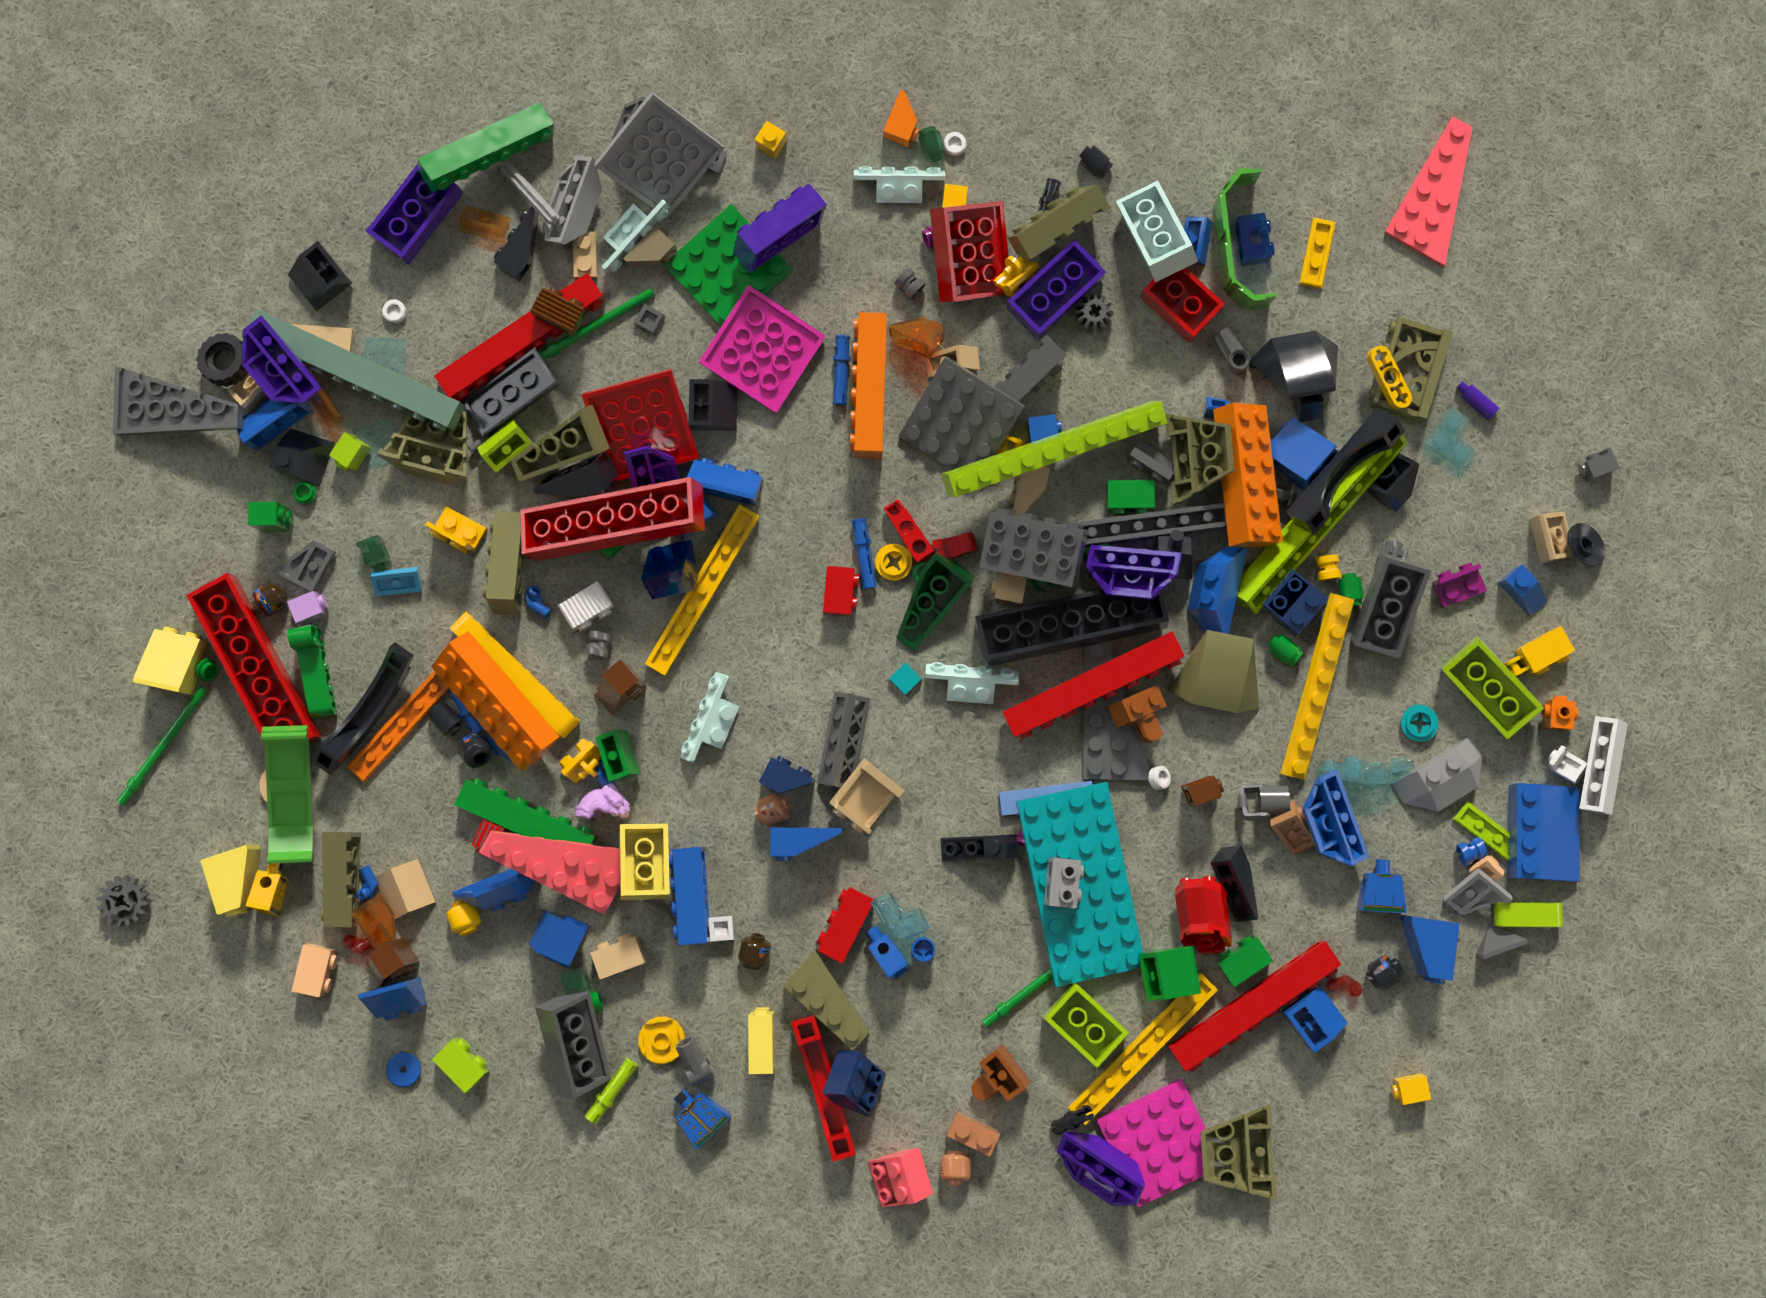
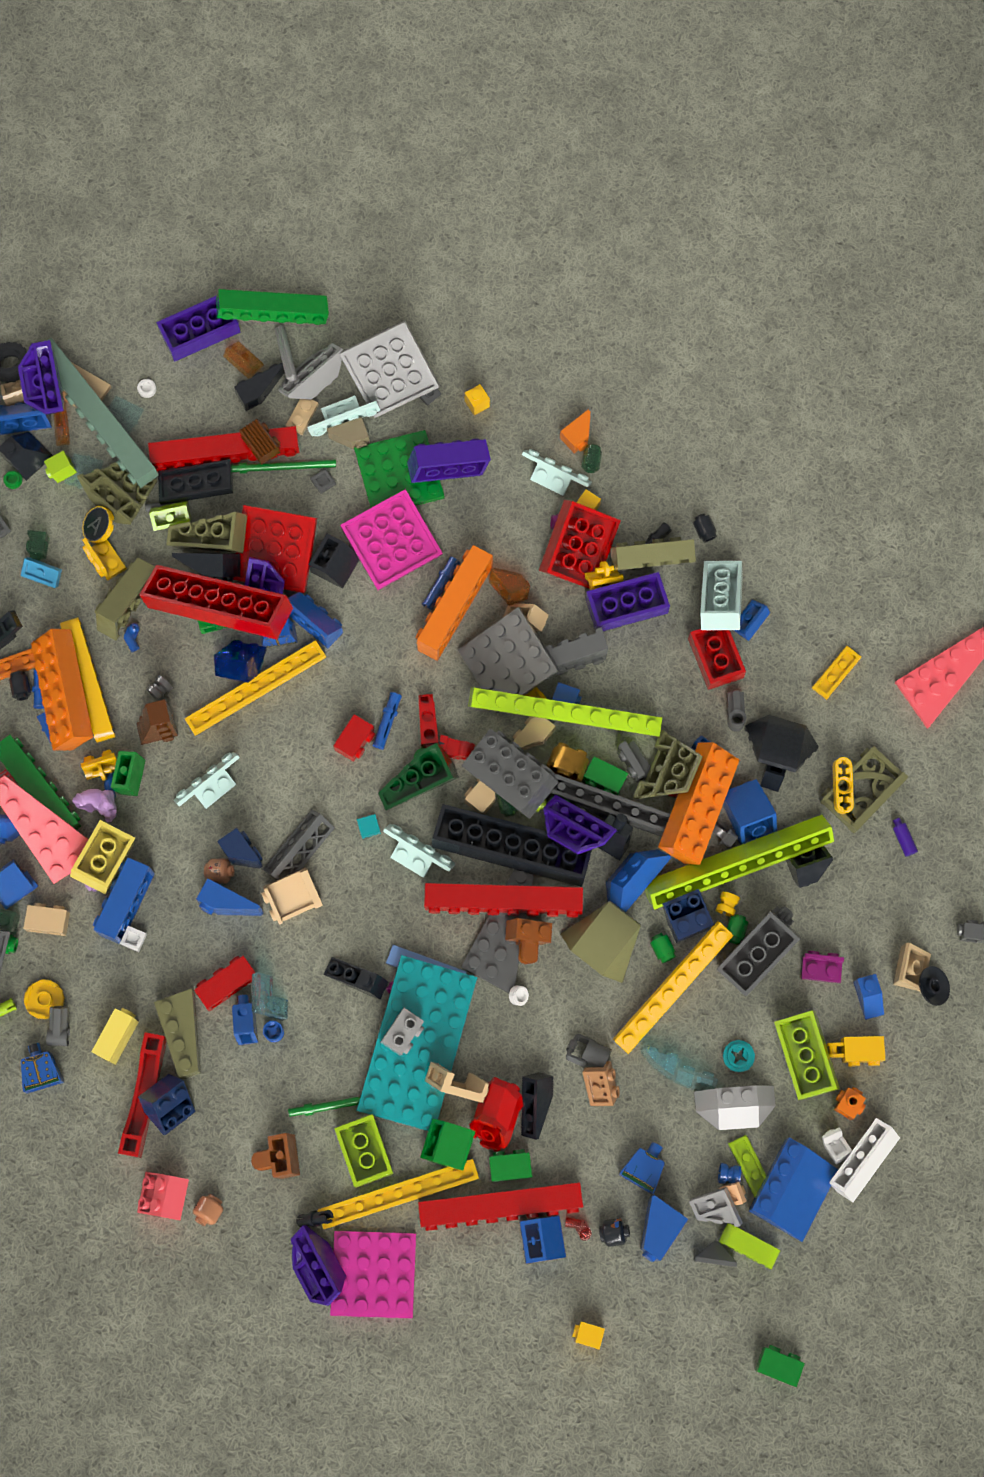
camera: 25 degrees right, 10 degrees down
(318, 276) = (107, 337): black slope -> none
(429, 496) = (98, 525): none -> tile
(474, 750) = (27, 718): black head -> none
(586, 606) = (165, 657): white brick -> none
(754, 951) = (148, 968): dark brown head -> none
(894, 551) = (411, 731): yellow gear -> none
(909, 283) = (523, 546): dark grey wheel -> none
(955, 144) = (608, 467): white tile -> none
(973, 1133) = (235, 1190): nougat brick -> none
(1084, 313) = (654, 637): dark grey gear -> none
(1084, 502) = (568, 762): none -> pearl gold brick
(1162, 905) = (442, 1079): none -> tan panel
(1202, 791) = (545, 1019): reddish brown brick -> none
(1238, 292) = (803, 589): bright green windscreen -> none
(1241, 1154) = (429, 1313): olive wedge -> none
(1250, 252) = (796, 628): clear blue brick -> none
(1333, 821) = (632, 1093): blue wedge -> none
(1374, 436) = (807, 821): black arch -> none
(1444, 438) = (865, 853): clear light blue plate -> none
(1619, 1020) = (779, 1366): none -> green brick

